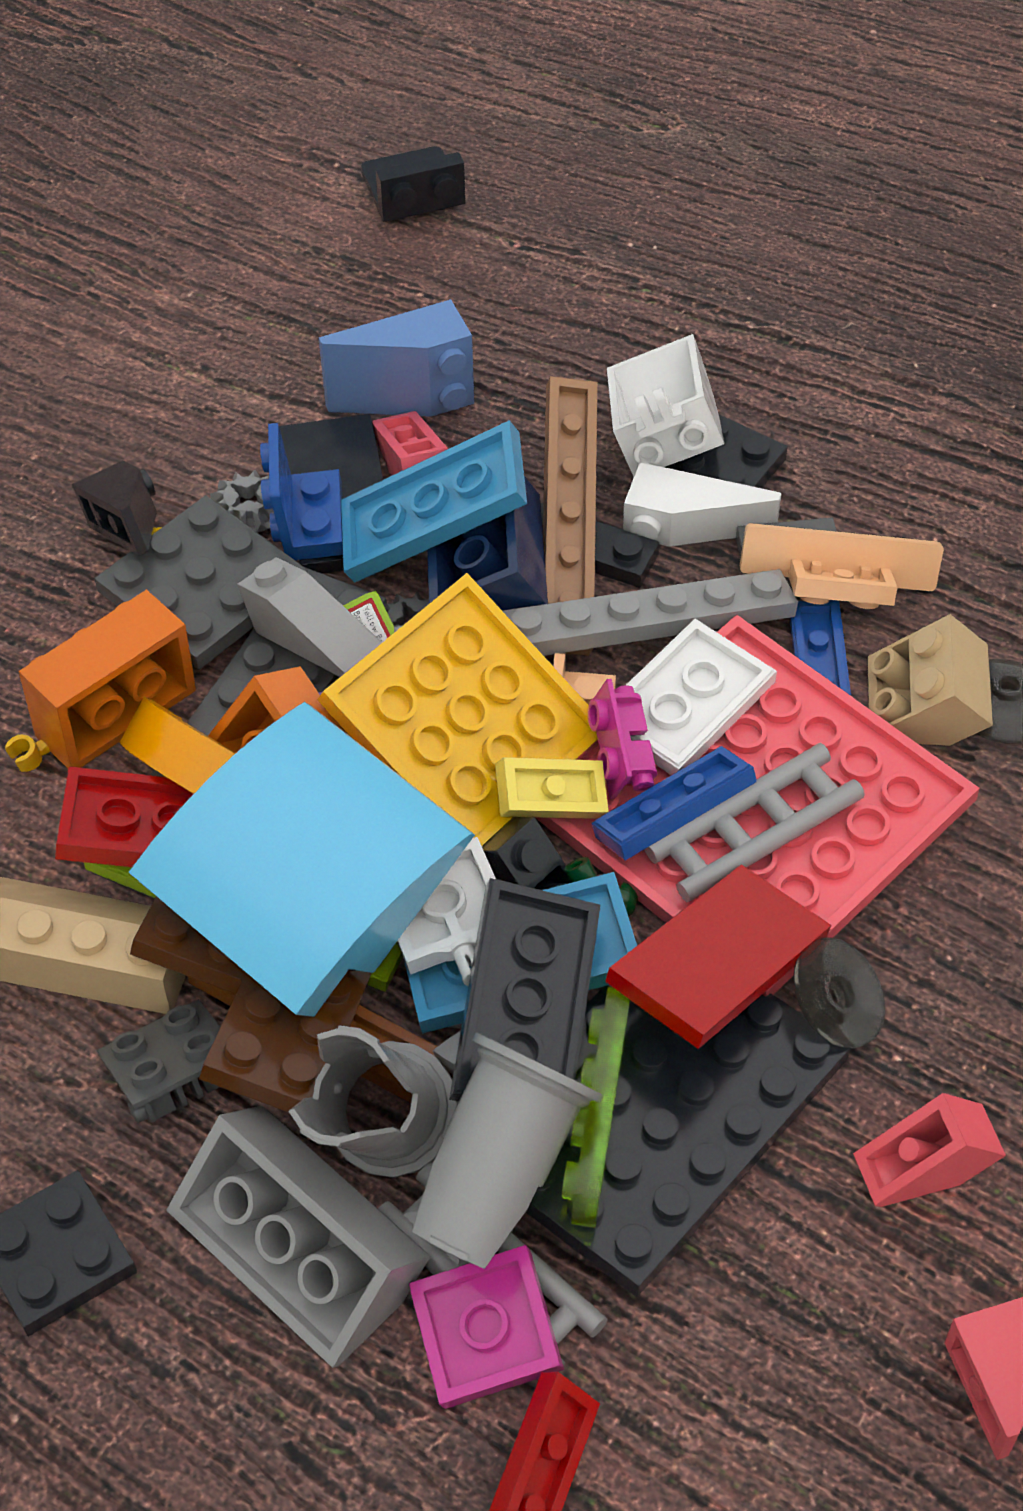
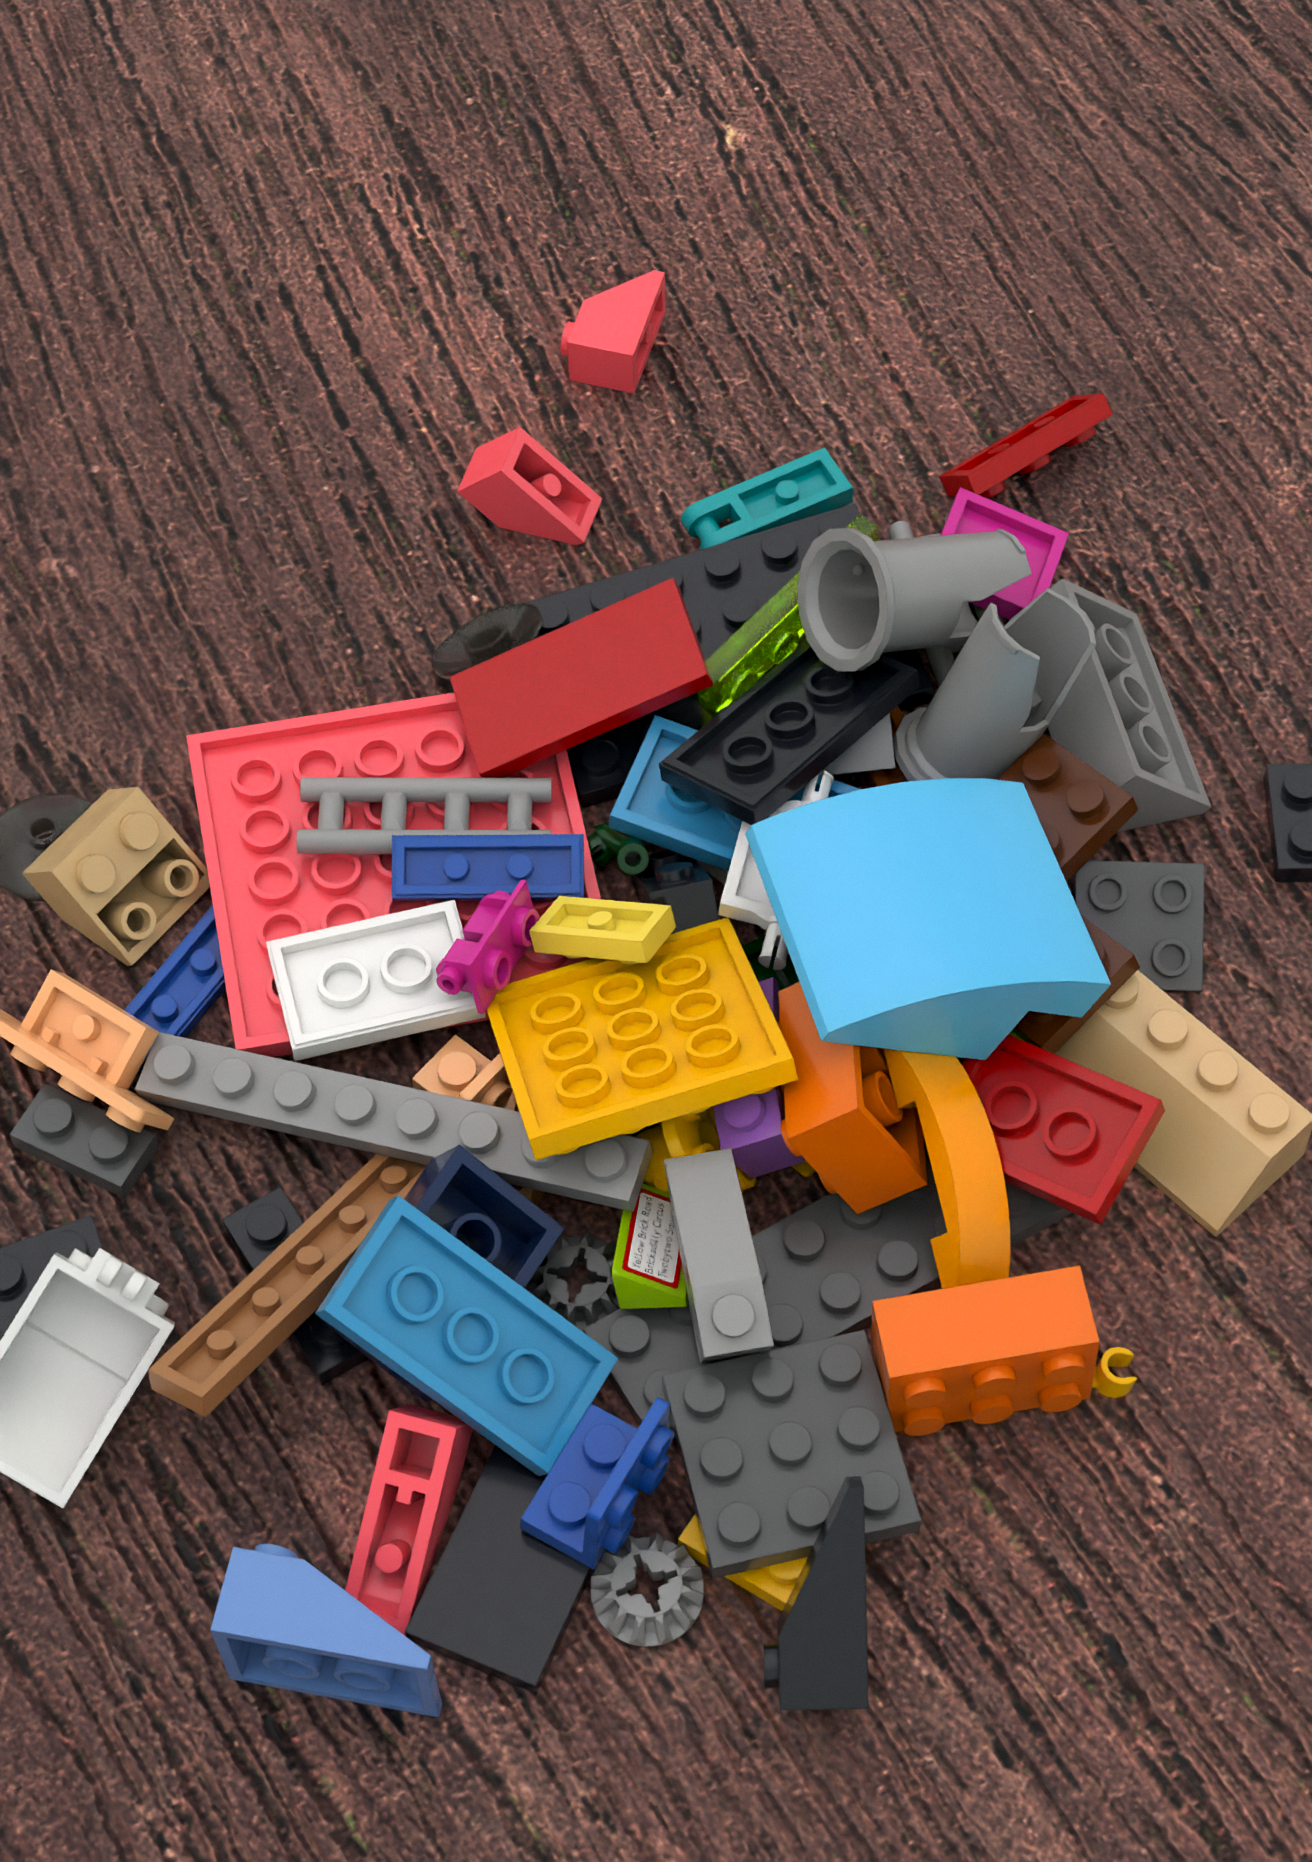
camera: 145 degrees left, 5 degrees up
(692, 507) = (157, 1234): white slope -> none
(722, 1273) = (770, 500): none -> teal plate

